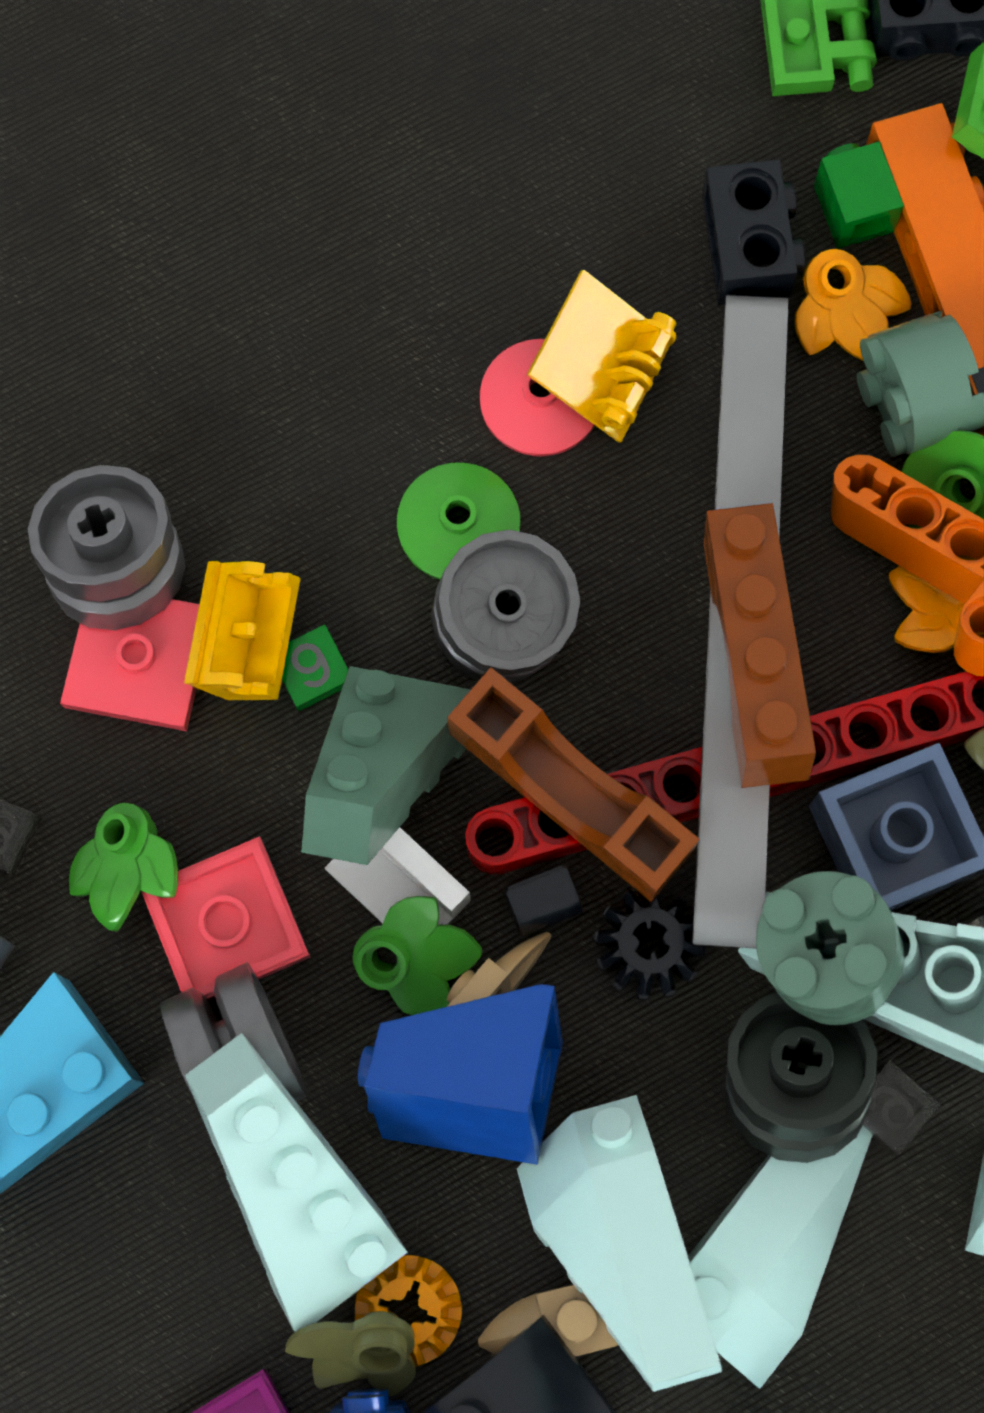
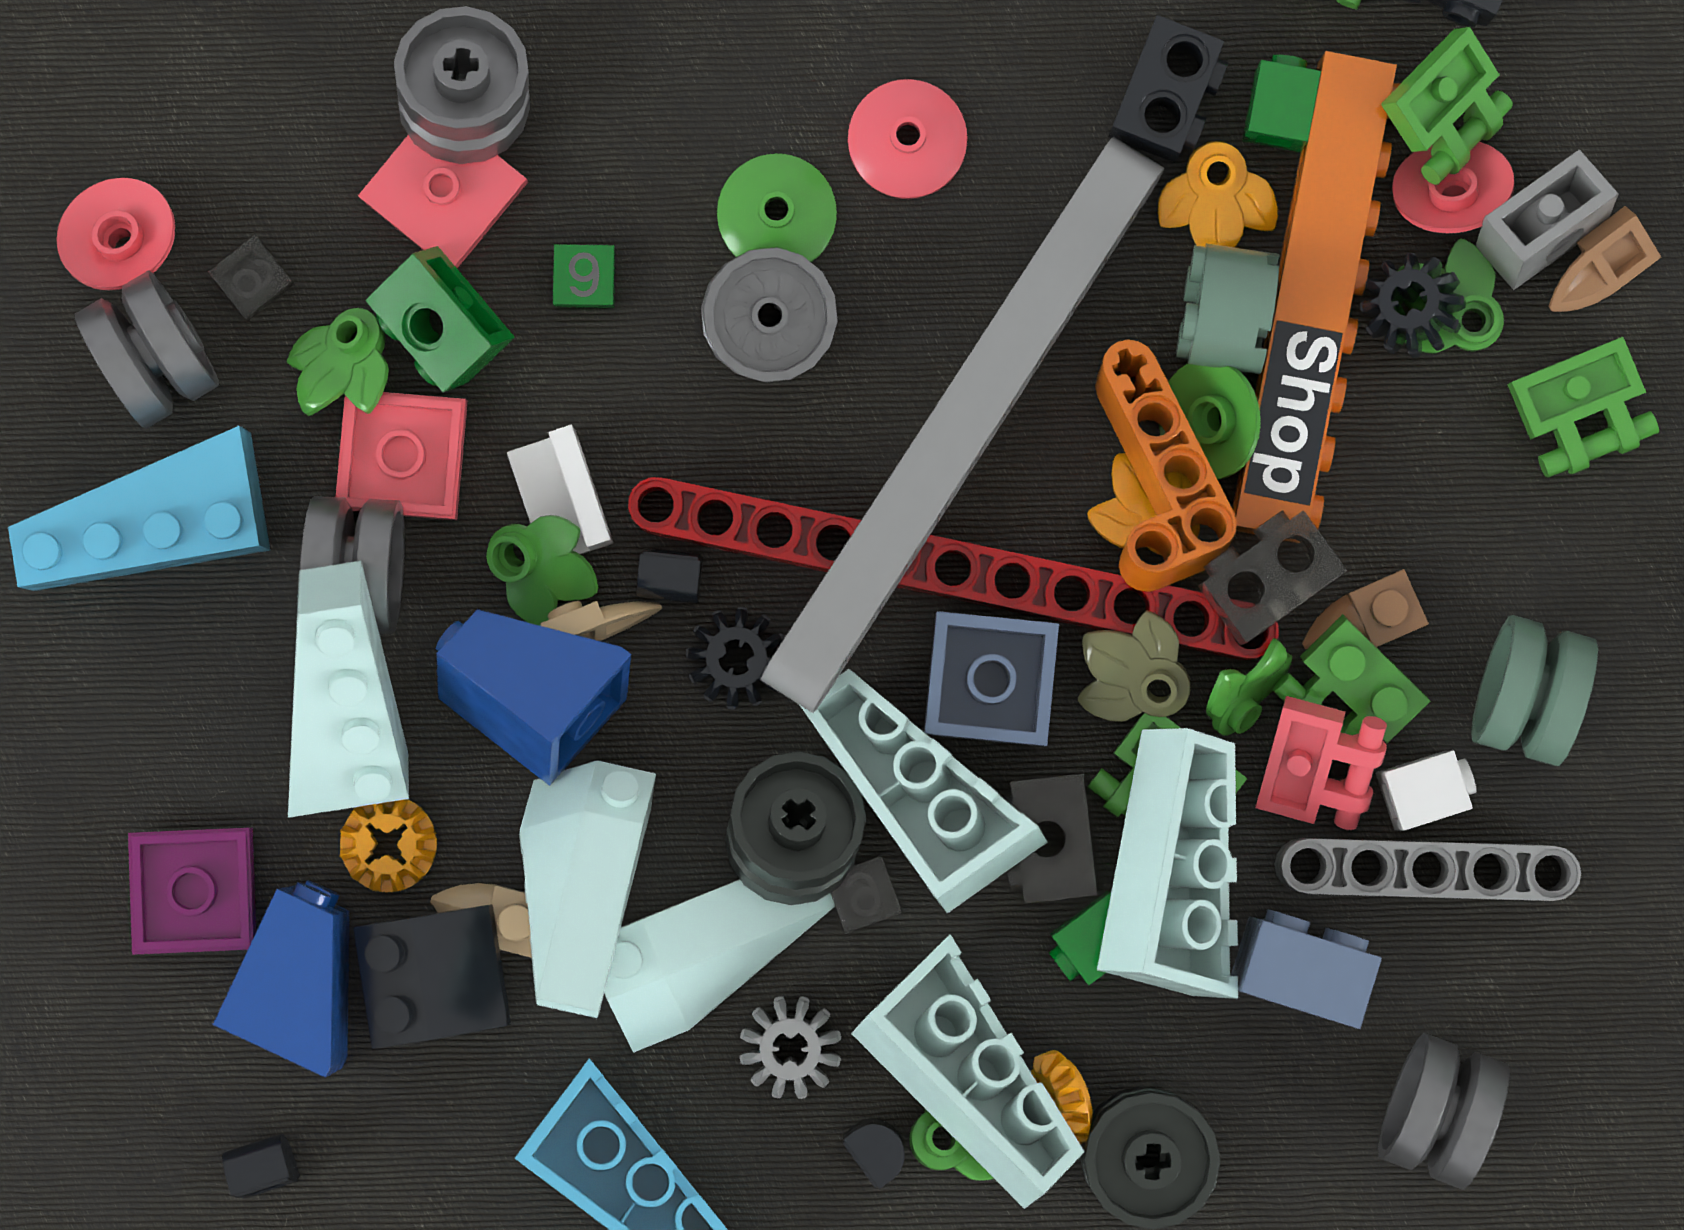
camera: 25 degrees right, 10 degrees up
(232, 769) = (470, 327): none -> green brick
(242, 631) = (540, 216): yellow hinge -> none
(368, 1348) = (340, 855): olive plate -> none
(376, 761) = (594, 389): sand green wedge -> none
(541, 764) = (733, 498): dark orange arch -> none
(602, 355) = (974, 135): yellow hinge -> none
(761, 646) = (944, 466): dark orange arch -> none
(795, 929) = (848, 711): sand green brick -> none
(919, 1321) = (790, 1068): none -> light grey gear

